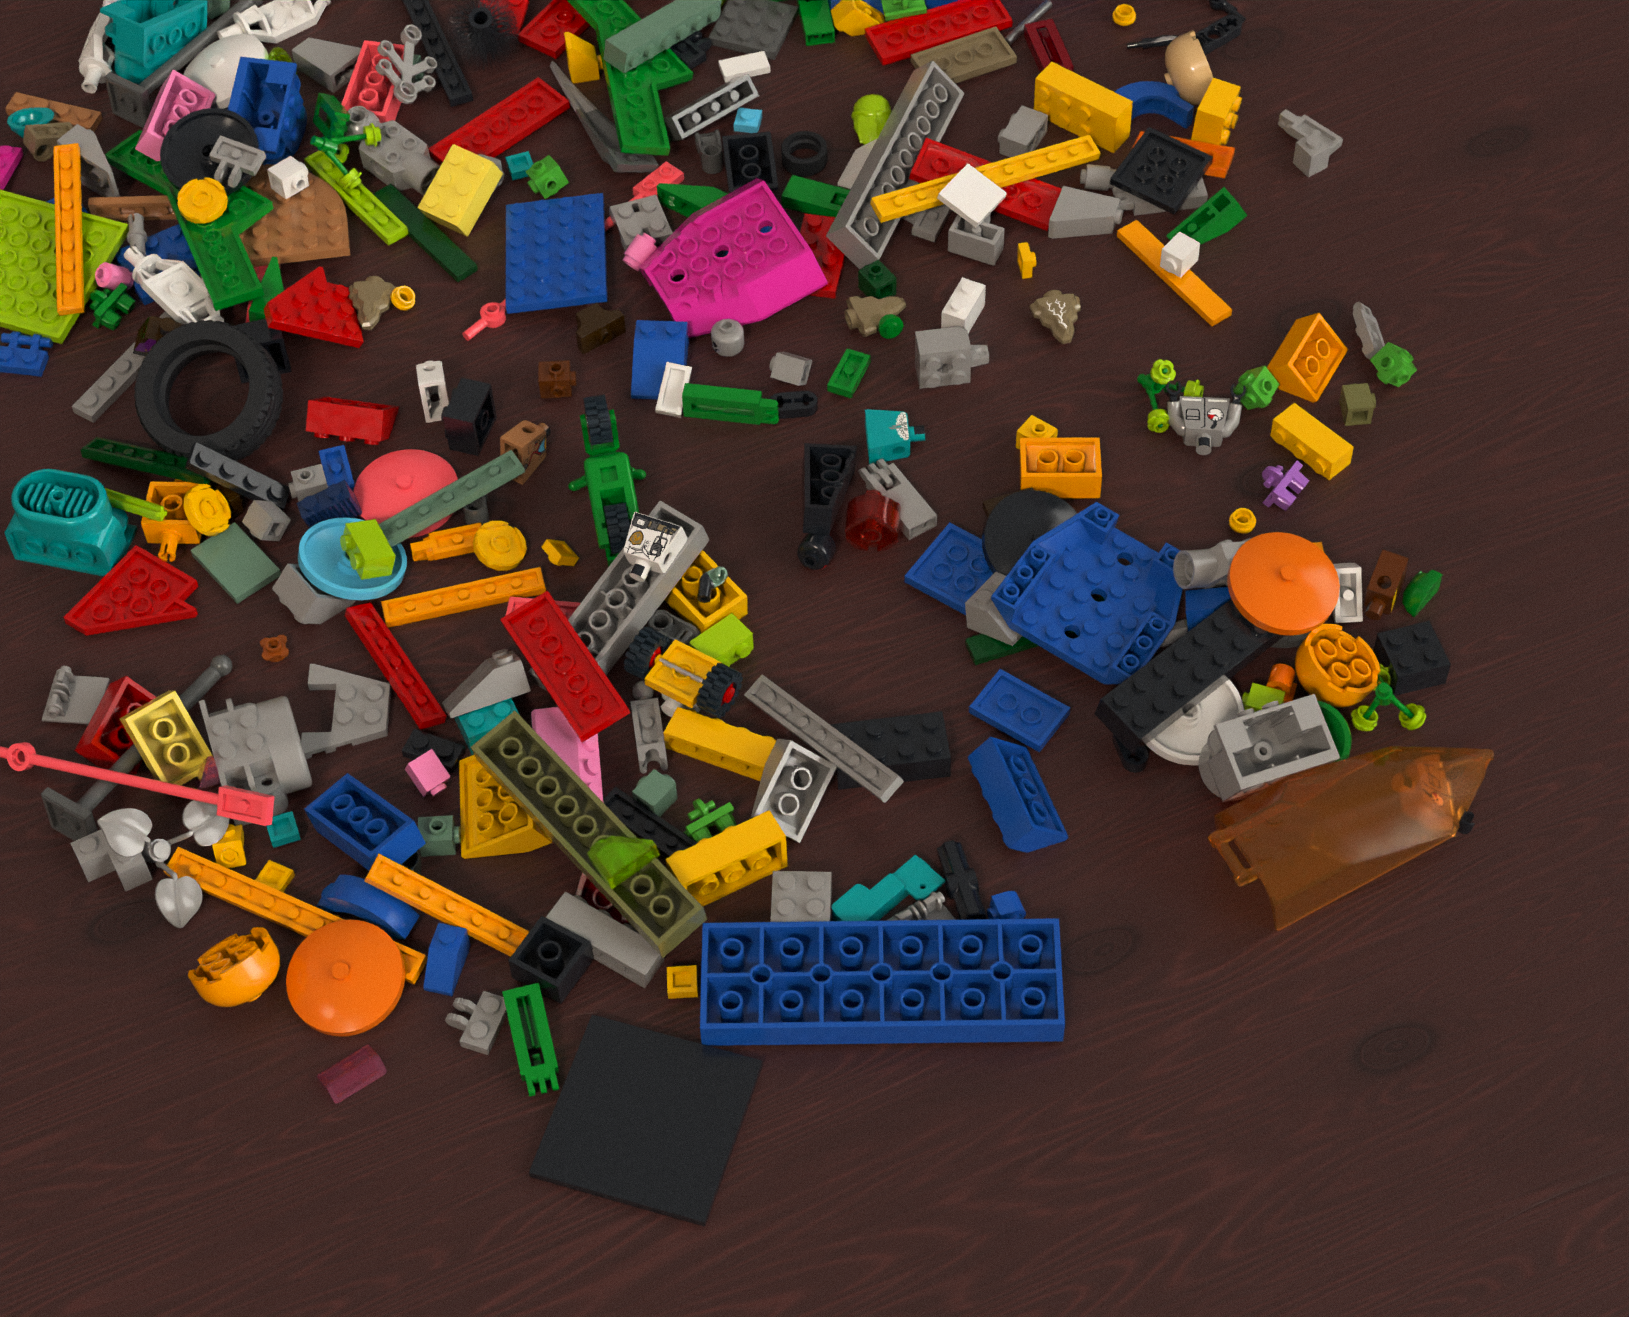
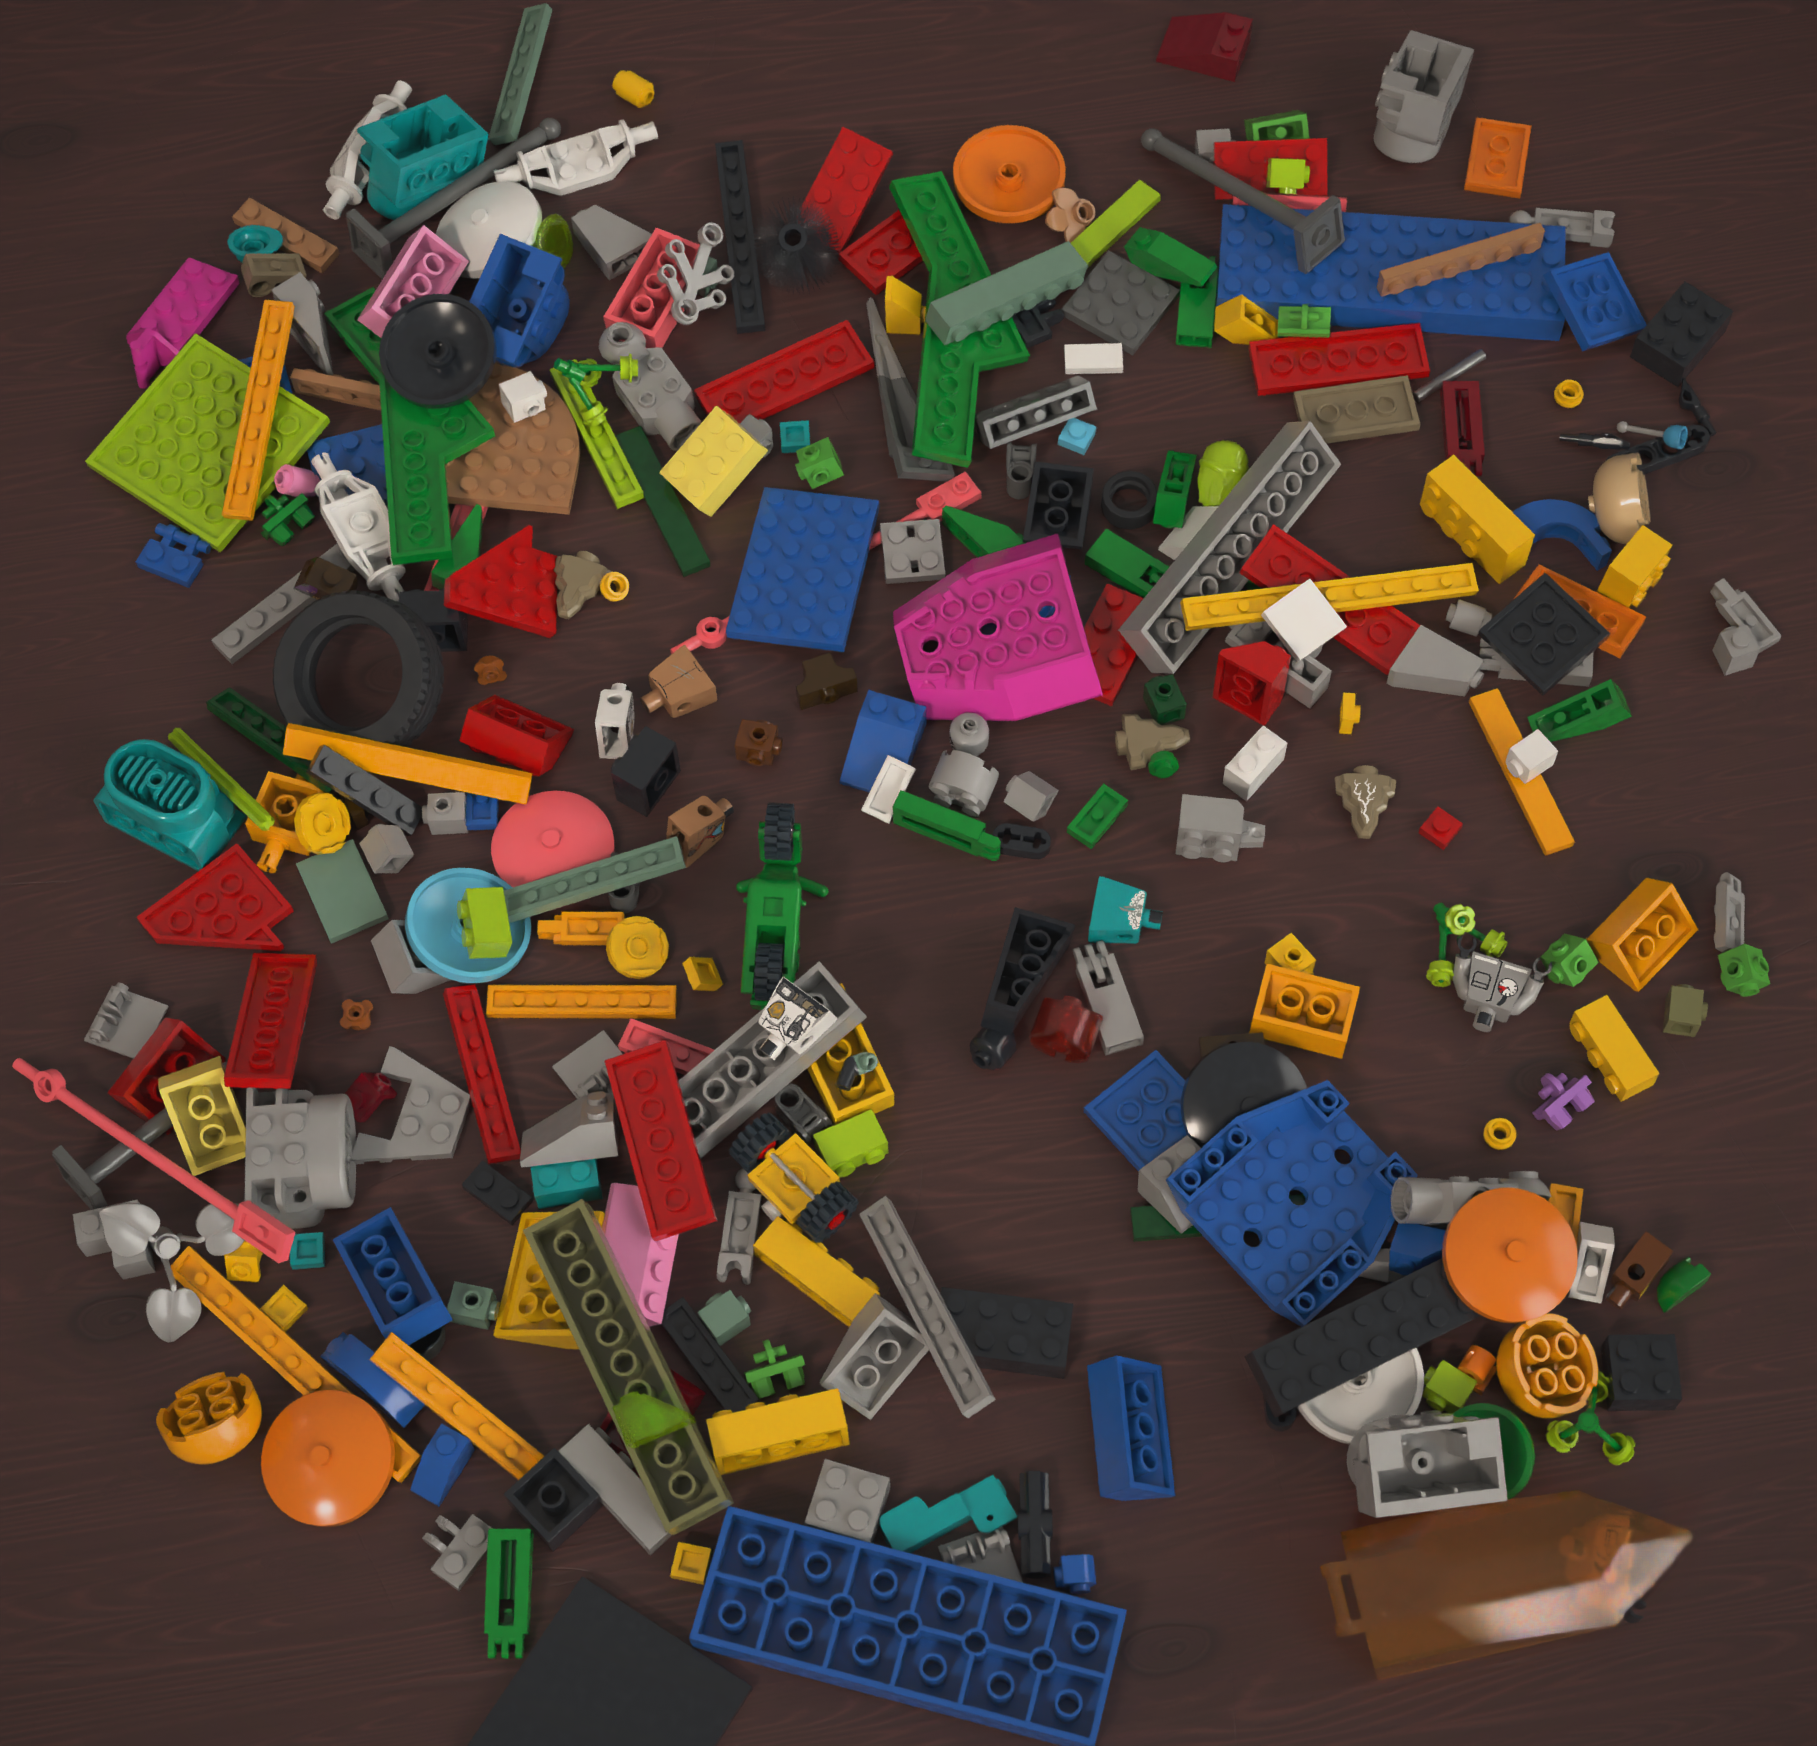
camera: 15 degrees right, 10 degrees up
(136, 234) = (334, 432): light grey pin -> none
(202, 200) = (414, 412): yellow tile -> none
(205, 659) = (270, 1021): none -> red plate
(207, 775) = (234, 1178): clear pink slope -> none
(236, 156) = (465, 367): light grey hinge -> none
(274, 448) = (412, 764): none -> light orange tile
(302, 702) = (368, 1093): none -> dark red bracket
(314, 372) = (490, 670): none -> dark orange plate
(330, 503) = (460, 849): dark blue brick -> none
(336, 116) = (593, 329): green hinge -> none
(352, 1074) = (306, 1574): clear pink slope -> none
(428, 774) = (481, 1226): bright pink brick -> none
(478, 354) = (679, 685): none -> medium nougat torso
(484, 640) = (585, 1067): none -> light grey hinge
(639, 250) = (899, 591): bright pink brick -> none
(733, 366) = (963, 782): none -> light grey brick
(838, 140) = (1174, 489): none -> green slope
(943, 246) = (1252, 679): none -> red slope
(1019, 710) = (1165, 1317): blue plate -> none
(1023, 132) = (1396, 535): light grey brick -> none
(1124, 324) = (1440, 828): none -> red plate
(1215, 24) = (1673, 436): none -> dark azure hinge

